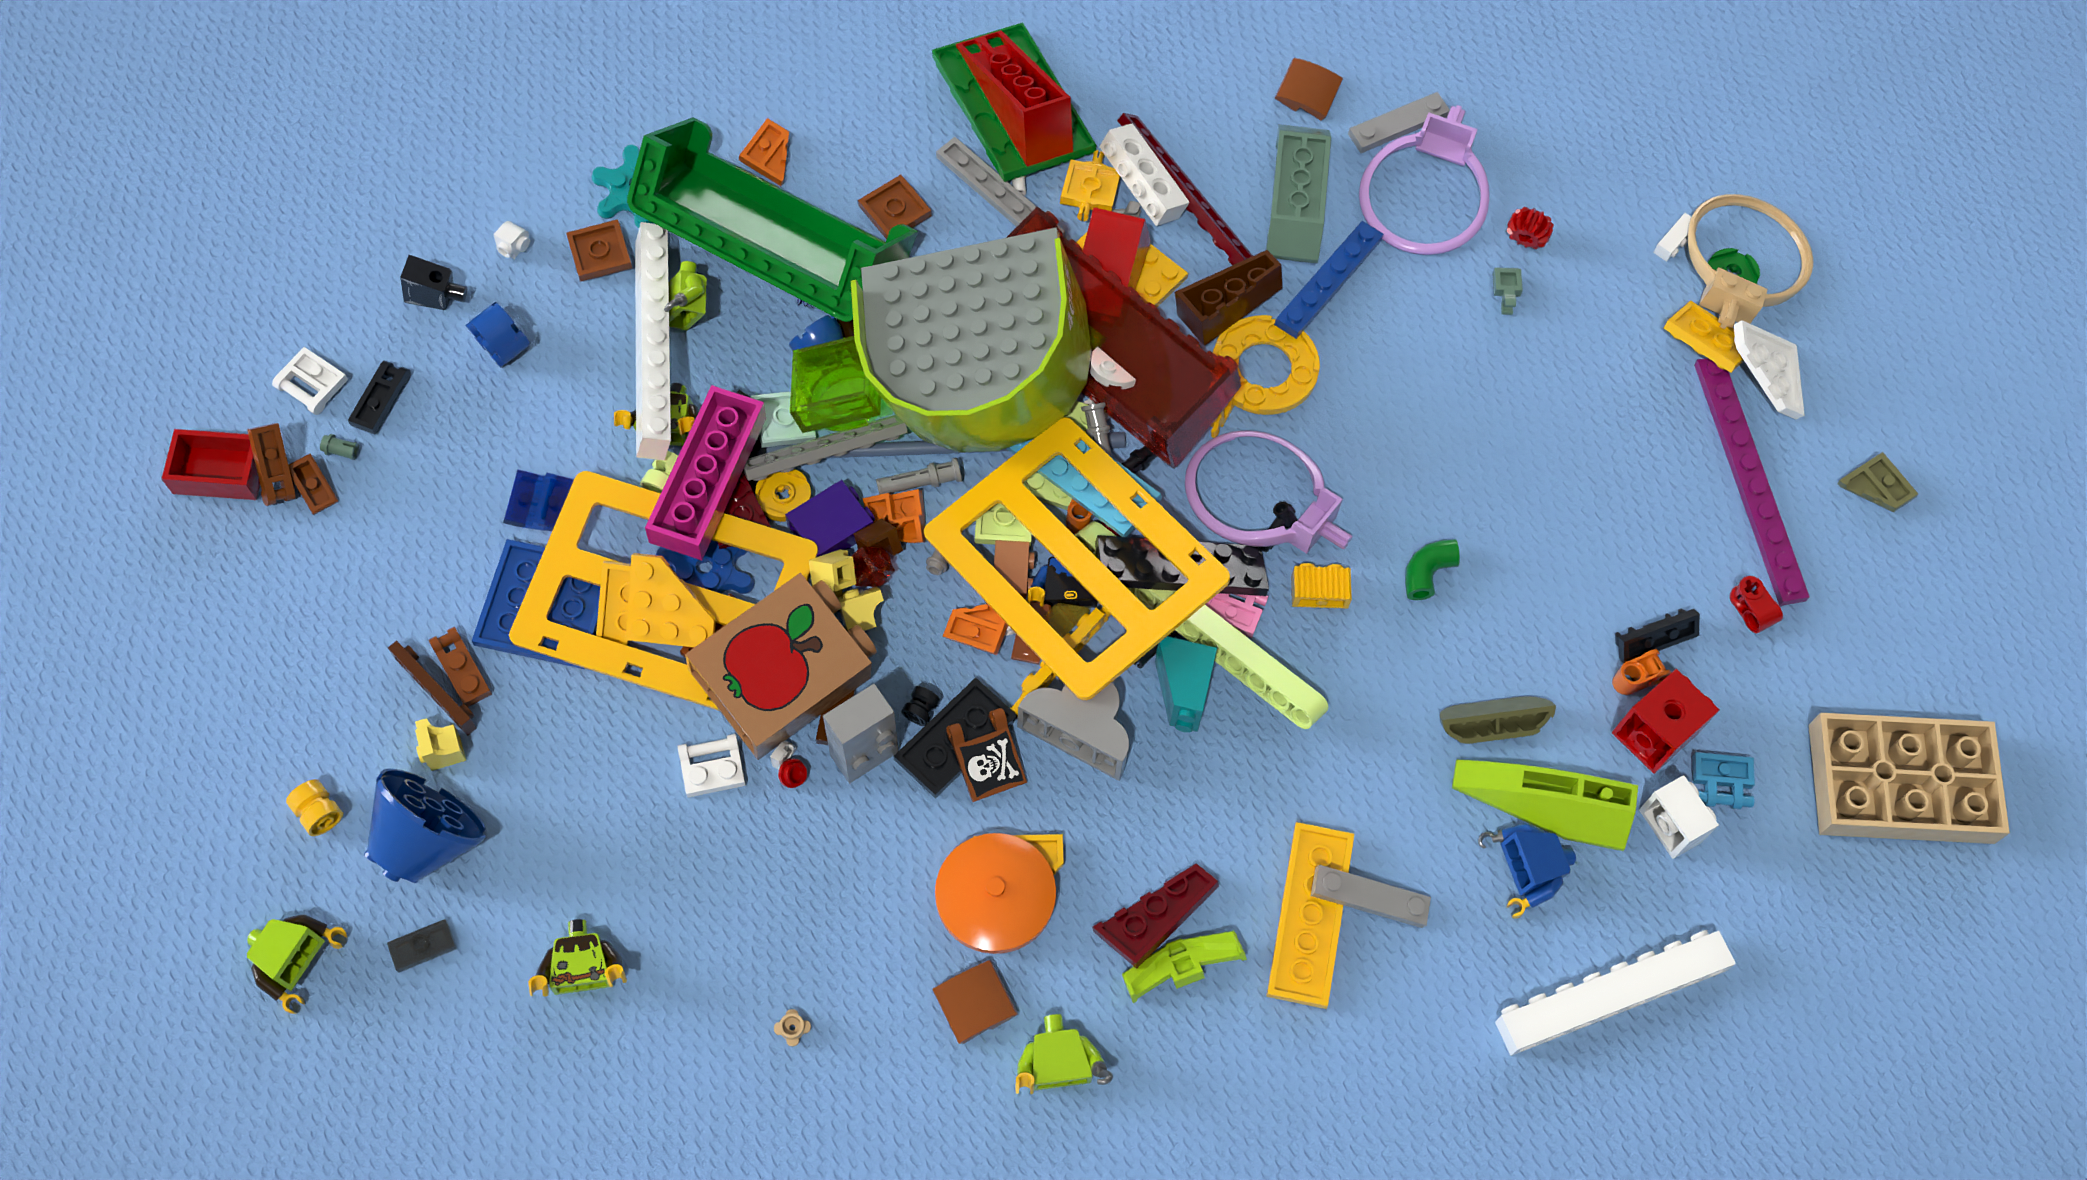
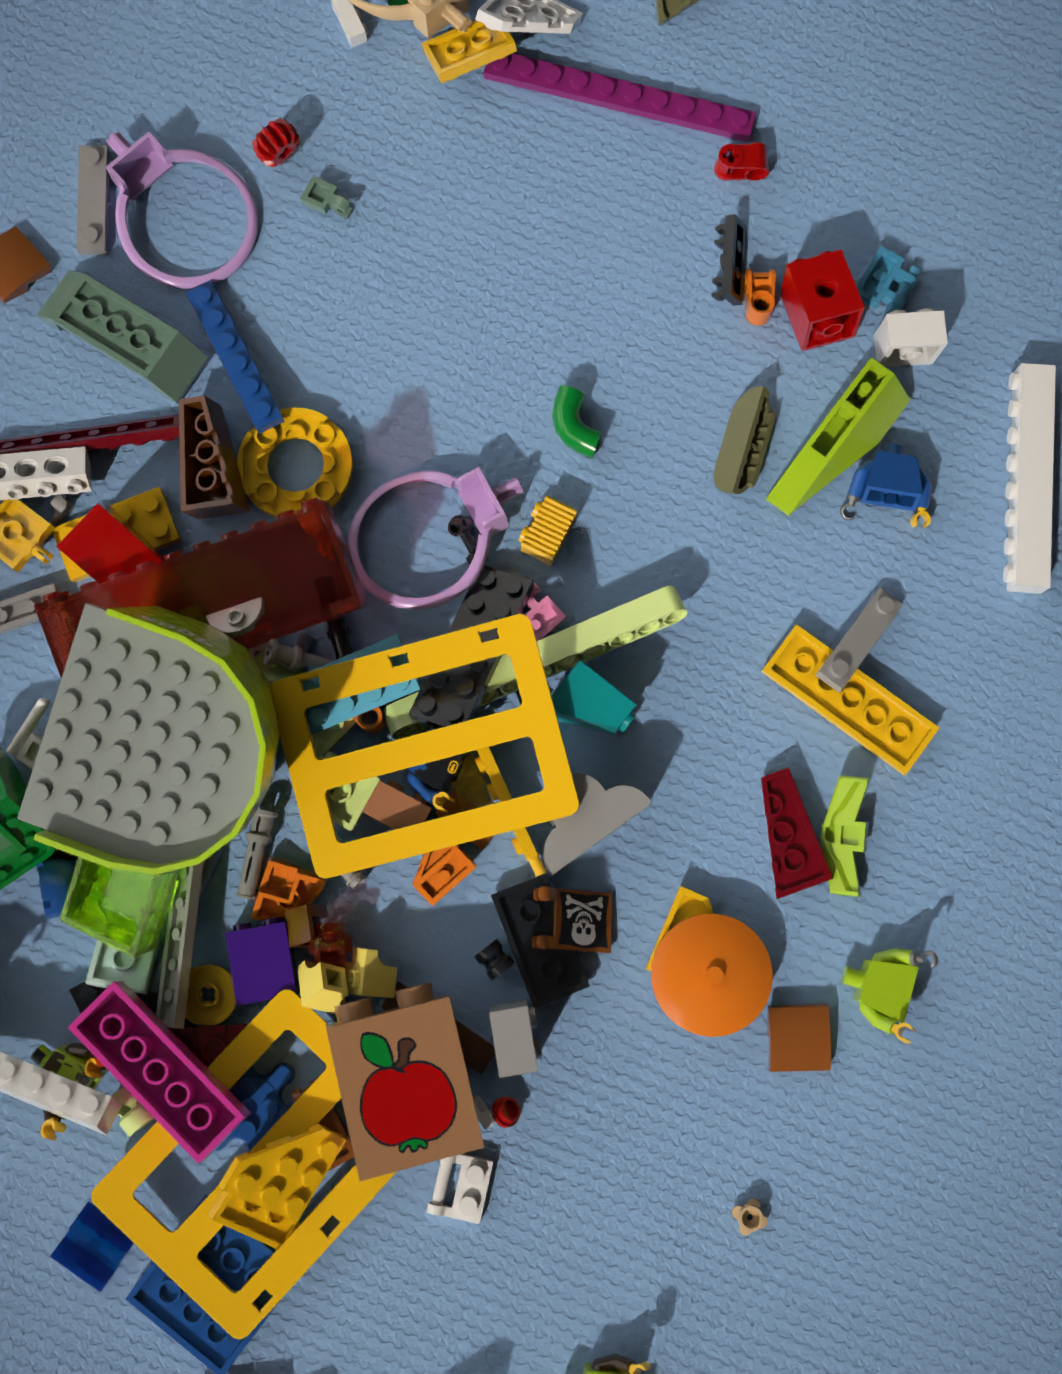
camera: 65 degrees left, 15 degrees up
(1908, 778) = (957, 130): tan brick -> none

